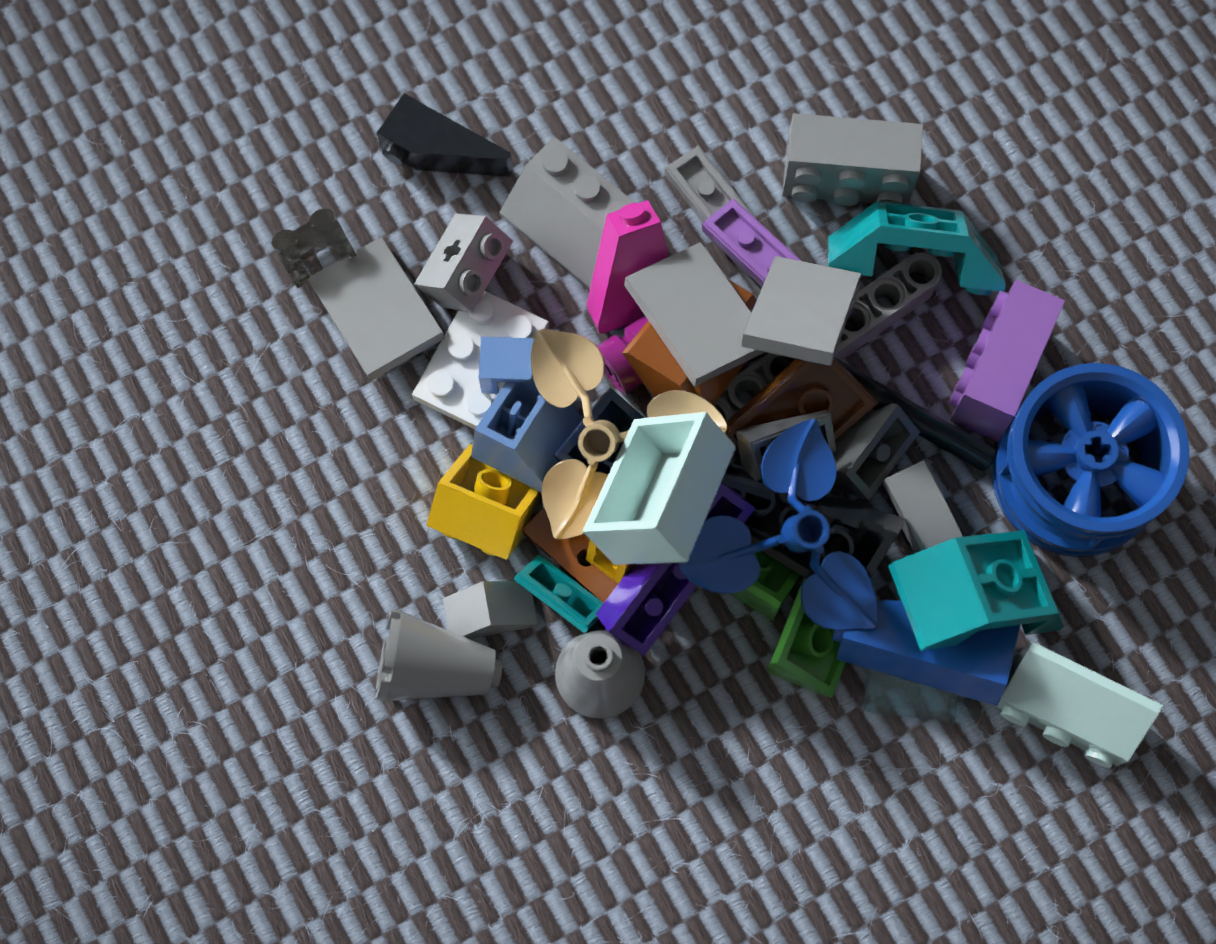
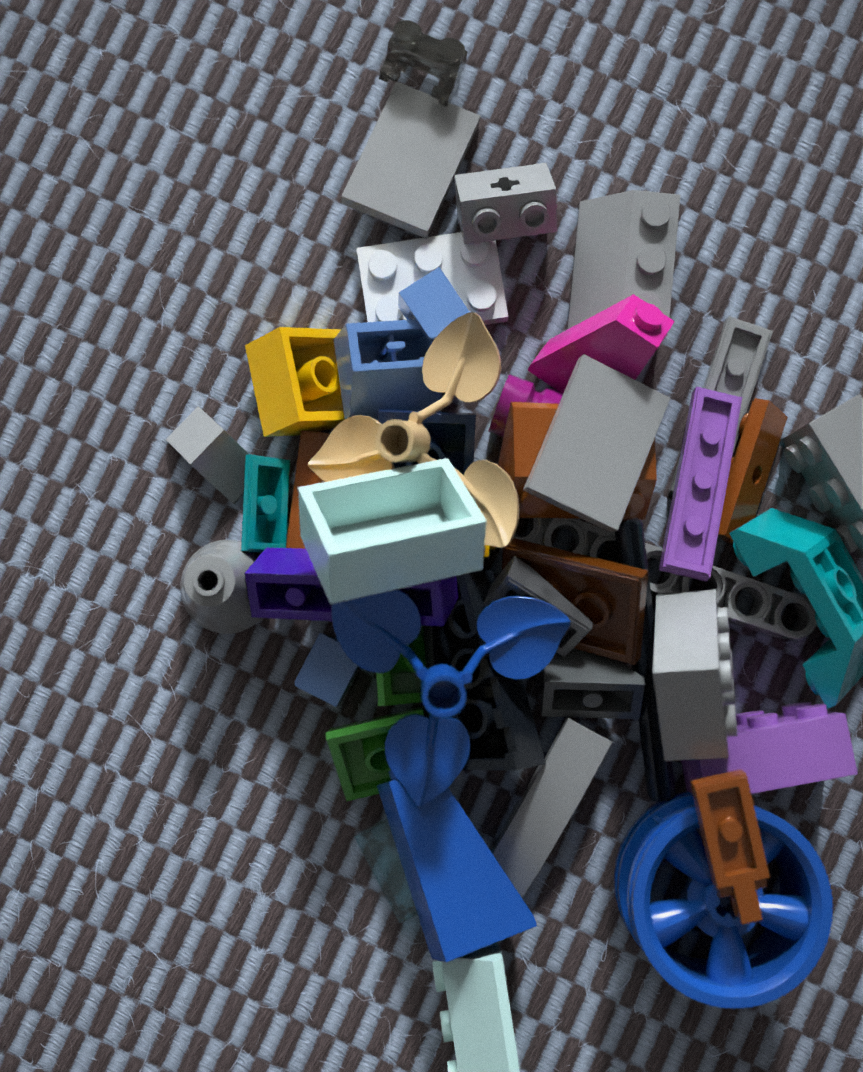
camera: 50 degrees right, 10 degrees up
(432, 662) = (128, 437): light grey cone -> none
(437, 143) = (601, 97): black slope -> none
(722, 633) = (326, 671): none -> medium blue panel
(770, 207) = (751, 465): none -> dark orange tile
(801, 310) = (666, 537): light grey tile -> none
(915, 362) = (693, 676): none -> light grey piece
(974, 587) = (516, 873): teal slope -> none
(1053, 412) = (732, 840): none -> dark orange hinge

